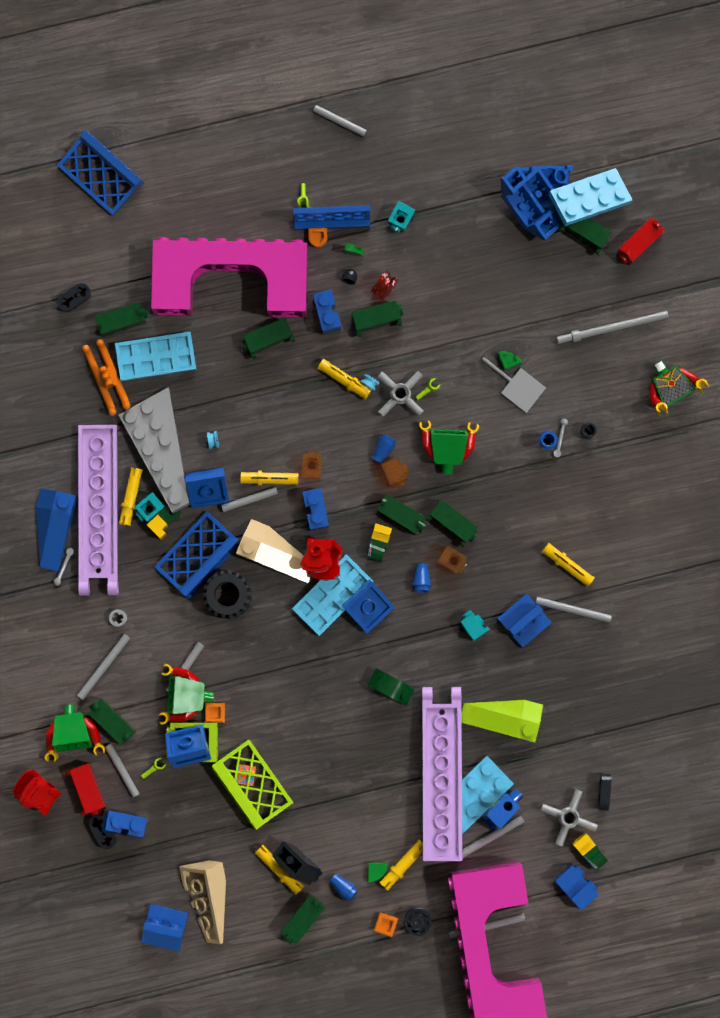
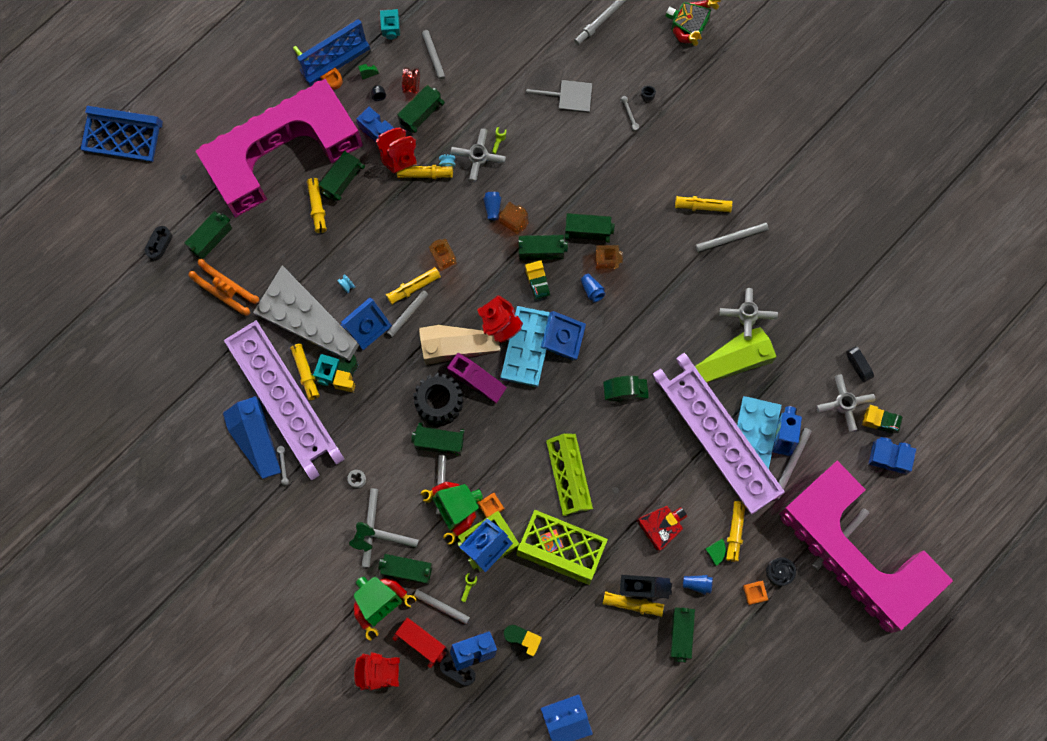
camera: 25 degrees left, 10 degrees down
(95, 668) = (362, 530): none -> dark green piece
(114, 684) = (395, 538): none -> light grey bar
(155, 356) = (256, 247): medium azure plate -> none
(172, 839) = (518, 635): none -> leg
(205, 629) = (438, 440): none -> dark green brick
(207, 568) = (409, 383): blue fence -> none
(207, 889) = (583, 663): tan wedge -> none
(231, 350) = (316, 204): none -> yellow pin
(271, 597) = (476, 377): none -> magenta slope
(300, 729) = (573, 472): none -> lime fence
(318, 517) = (465, 281): blue brick -> none
(327, 346) = (397, 149): none -> red piece
(345, 822) = (662, 526): none -> torso
(422, 270) = (434, 57): none -> light grey bar
(448, 446) = (543, 170): green torso -> none
(473, 625) = (660, 298): teal brick -> none
(508, 360) = (548, 80): green tile -> none
(524, 620) = (698, 269): blue bracket -> none
(535, 694) = (748, 319): none -> light grey bar
(551, 436) = (621, 117): blue cone -> none

